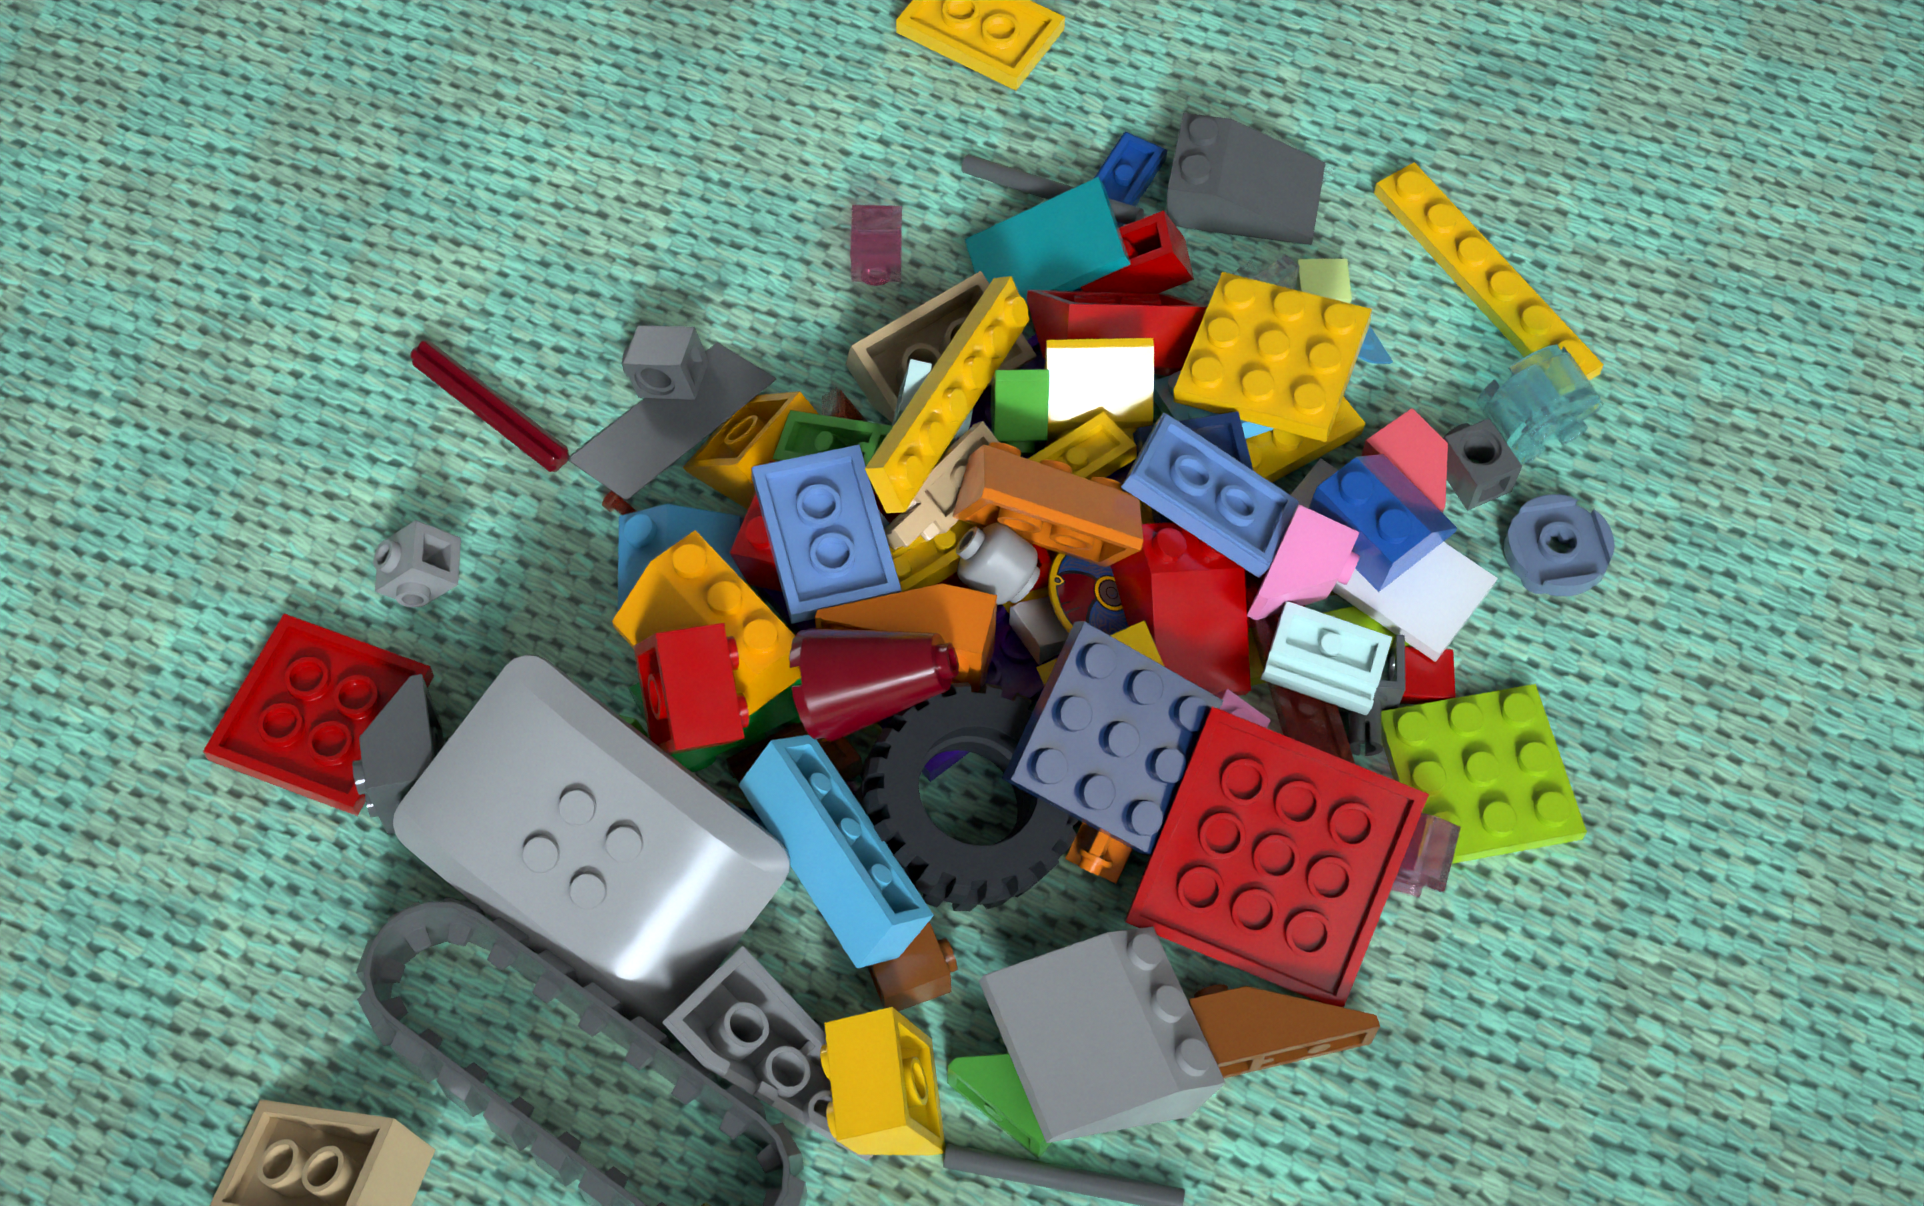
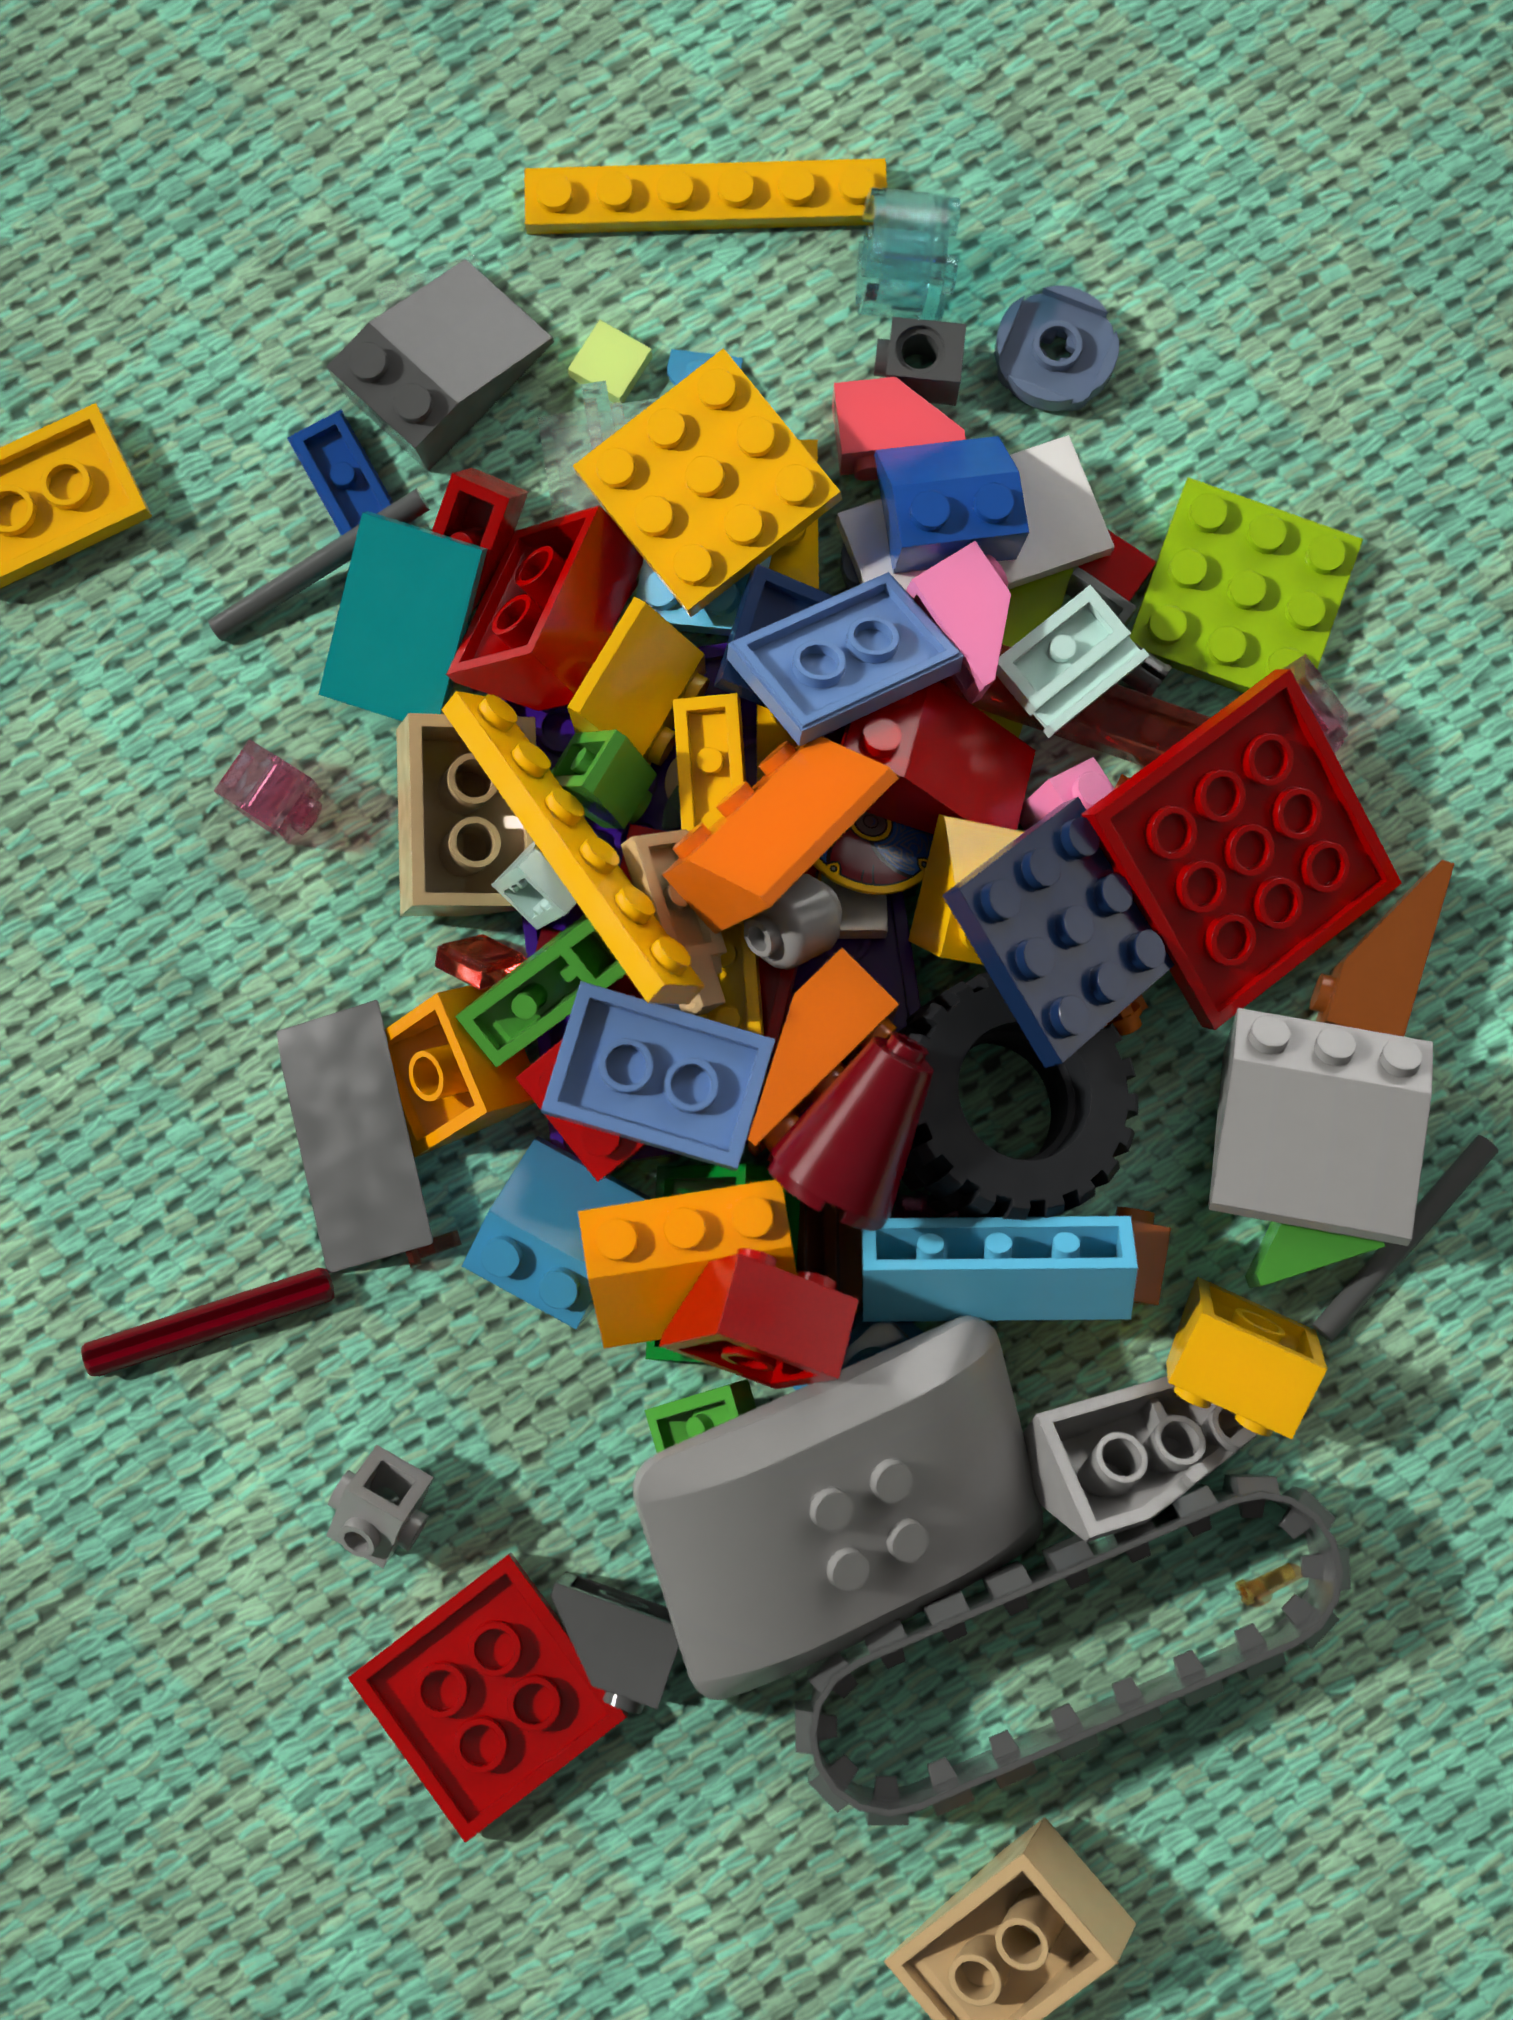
camera: 55 degrees left, 20 degrees up
(665, 362) = (283, 1106): dark grey brick -> none

